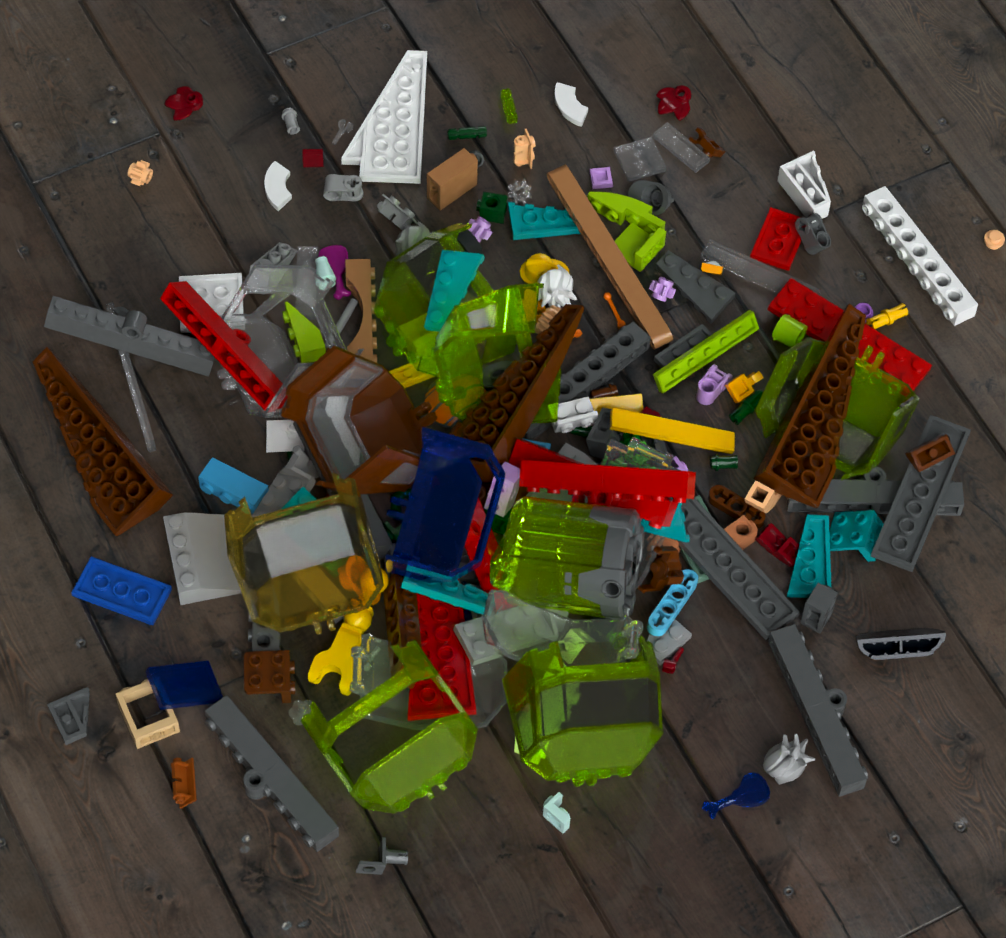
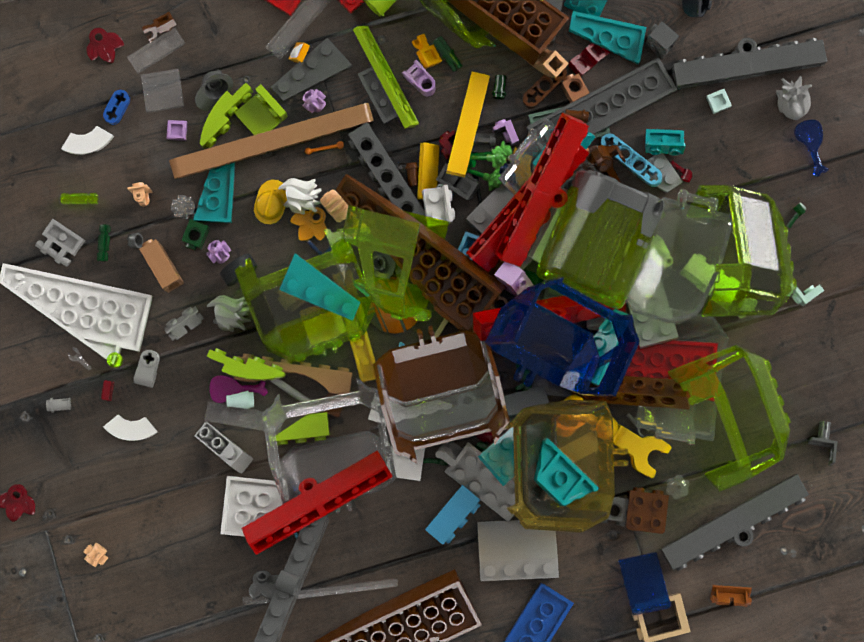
camera: 75 degrees left, 25 degrees up
(291, 564) = (560, 476): none -> teal wing
(345, 156) = (118, 361): none -> clear neon green hinge
(358, 262) = (252, 370): none -> lime slope
(463, 100) = (64, 238): none -> light grey plate
(612, 122) = (120, 109): none -> blue beam
(656, 794) = (799, 209): none -> dark green hand
(702, 633) = (664, 142): none -> teal bracket
(707, 534) = (582, 115): none -> reddish brown pin
(765, 685) = (718, 101): none -> light aqua plate

